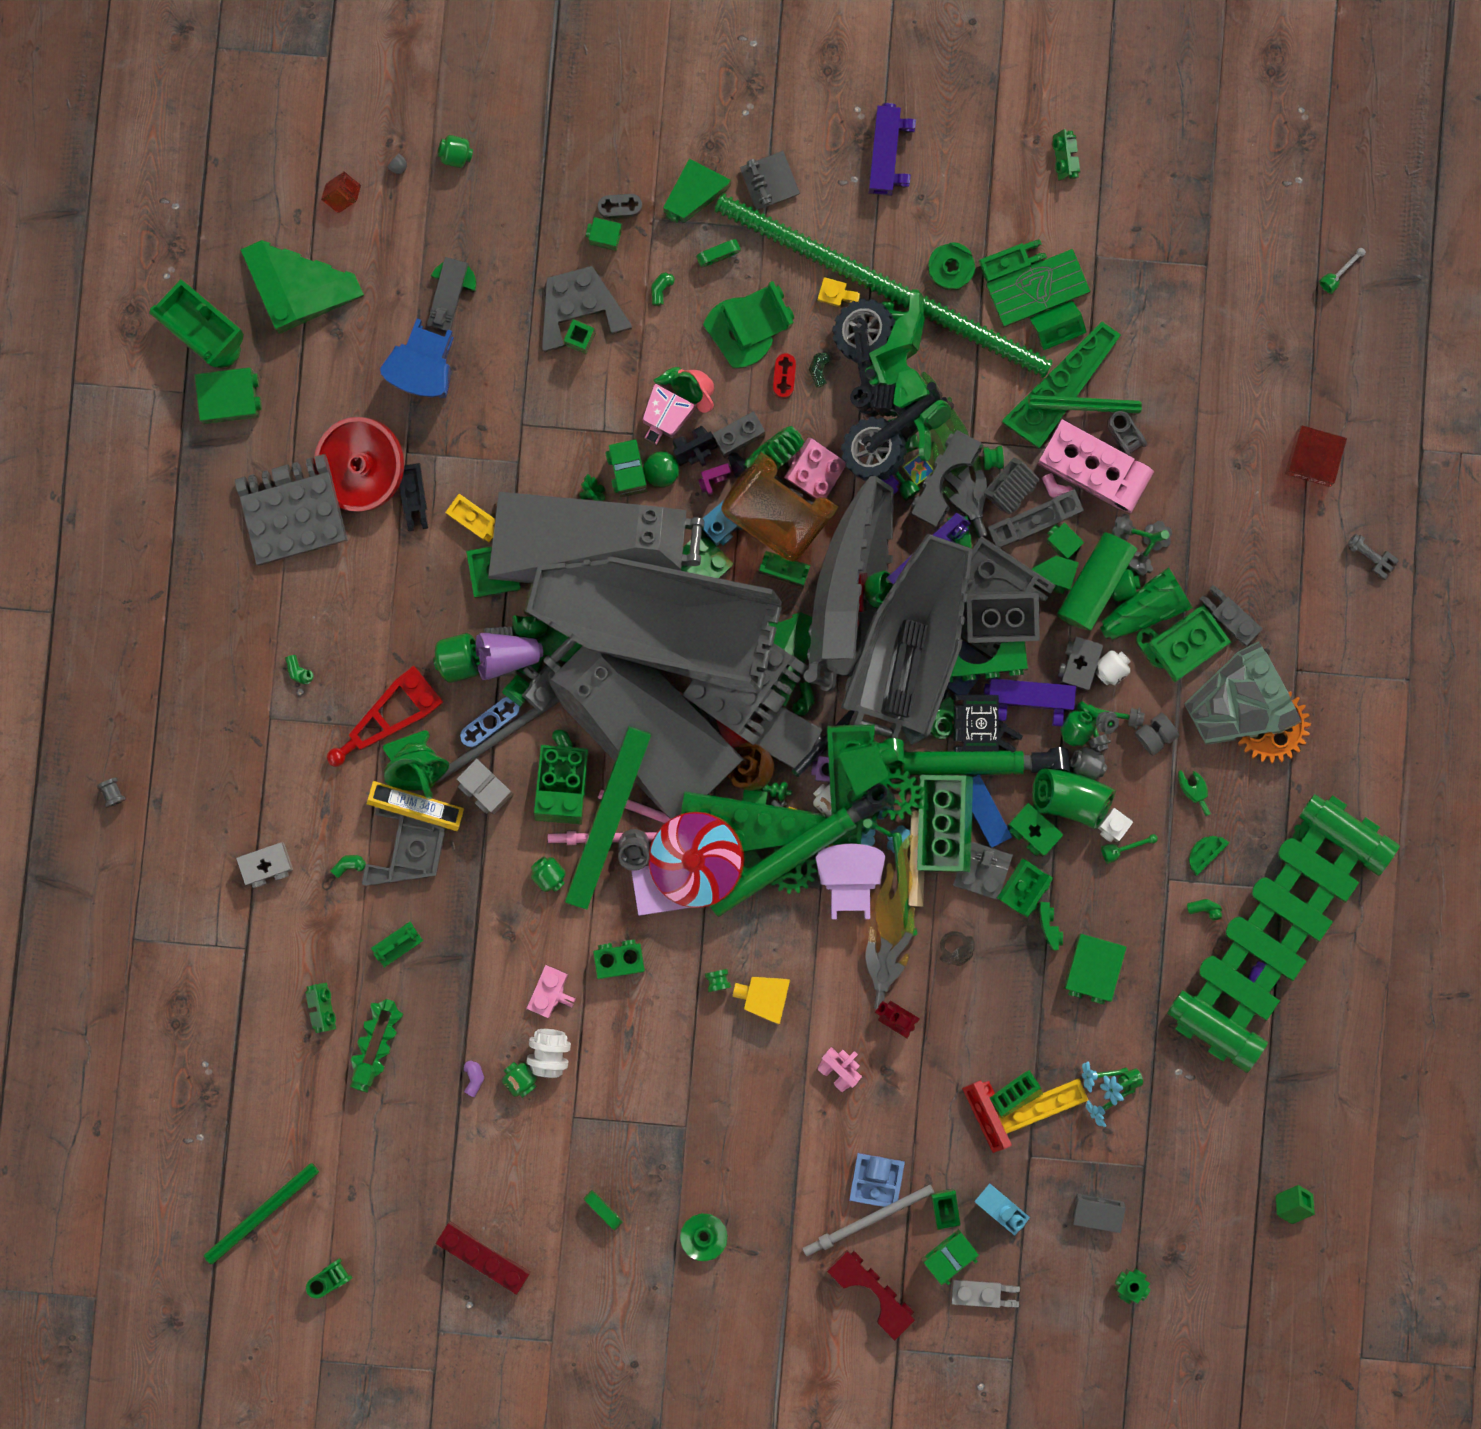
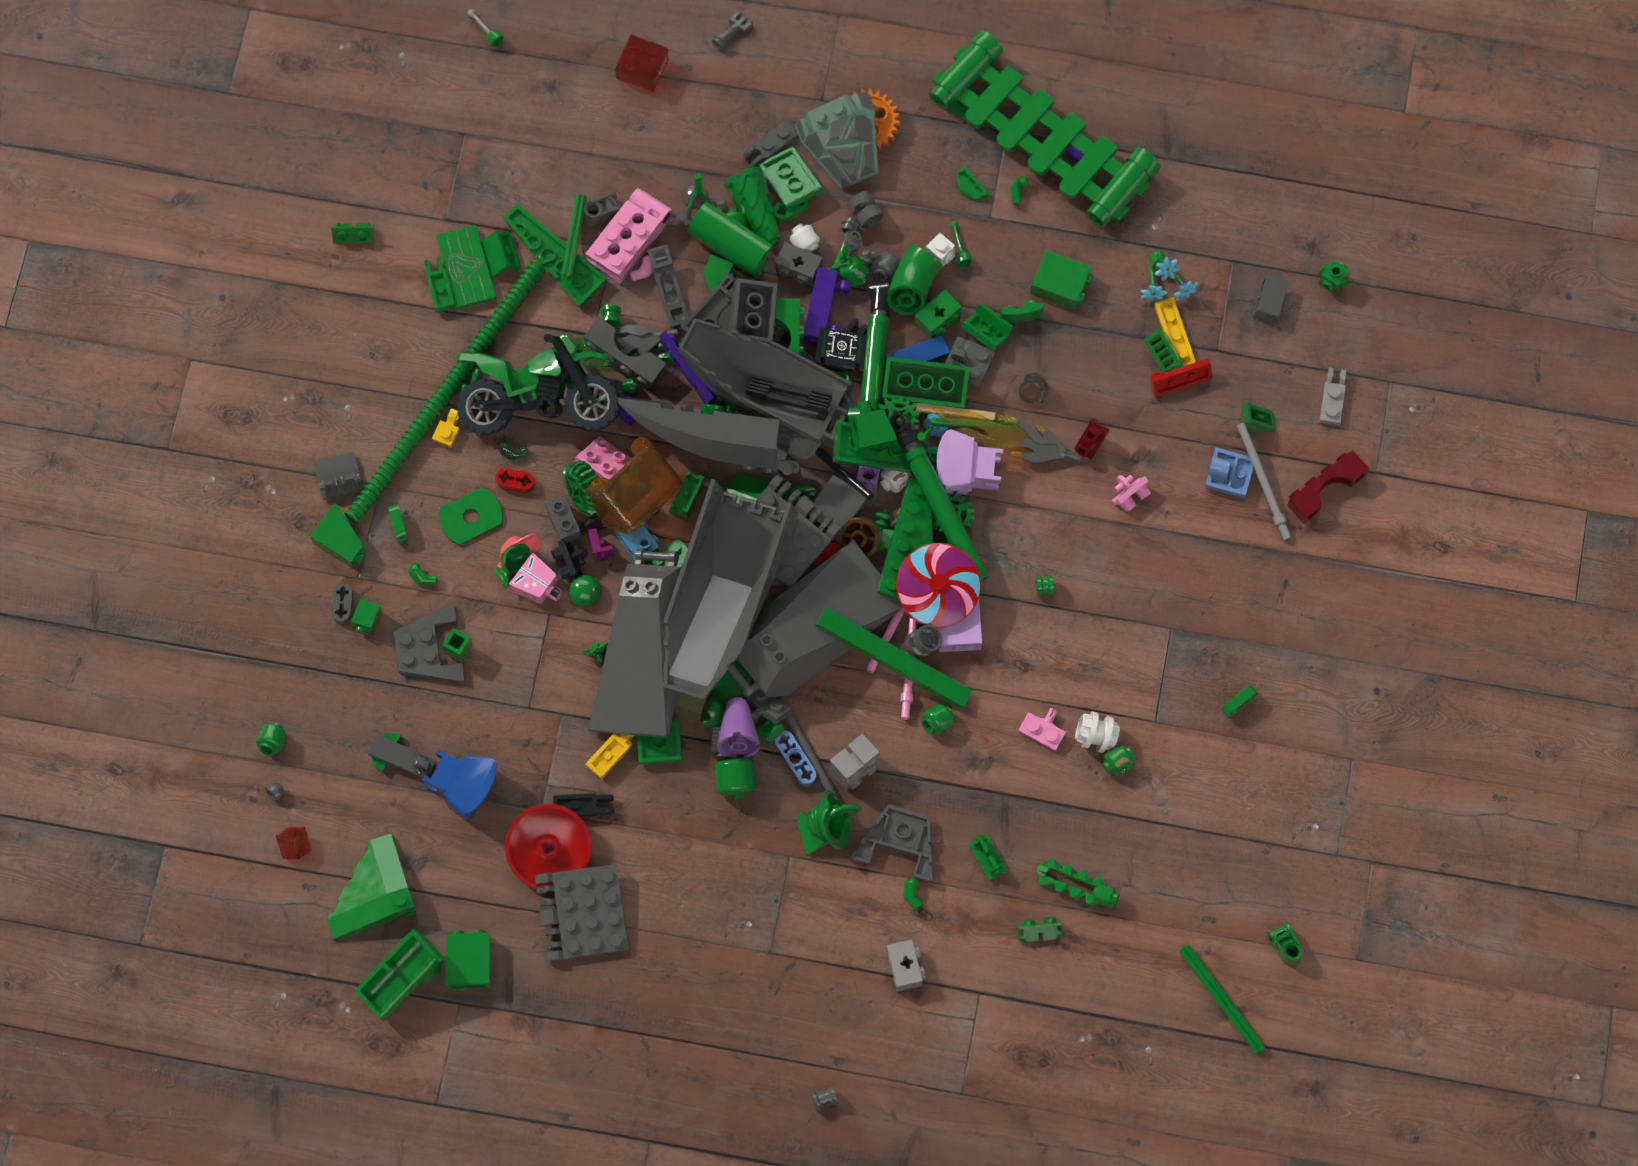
camera: 85 degrees left, 15 degrees down
(297, 673) = (732, 922): green arm -> none
(415, 806) = (865, 827): tile -> none
(417, 690) = (764, 816): red plate -> none
(476, 1077) = (1113, 799): medium lavender arm -> none
(482, 1258) = (1274, 805): dark red arch -> none
(561, 784) = (859, 700): green slope -> none
(562, 738) = (822, 696): green arm -> none
(619, 966) = (1024, 666): green brick -> none
(627, 468) = (582, 614): green container -> none
(700, 1249) = (1272, 610): green dish -> none
(758, 316) = (458, 495): green panel -> none
(764, 996) = (1063, 548): yellow torso -> none
(885, 148) = (326, 376): dark purple brick -> none
(918, 470) = (614, 375): tile -> none
(950, 1257) = (1300, 416): green container -> none
(964, 262) = (435, 323): green plate -> none
(1002, 1209) = (1261, 373): medium azure slope -> none
(1011, 486) = (637, 303): dark grey brick -> none
(1064, 540) = (690, 266): green brick -> none
(1195, 793) = (918, 187): green hand -> none
(1295, 1204) = (1273, 145): green panel -> none

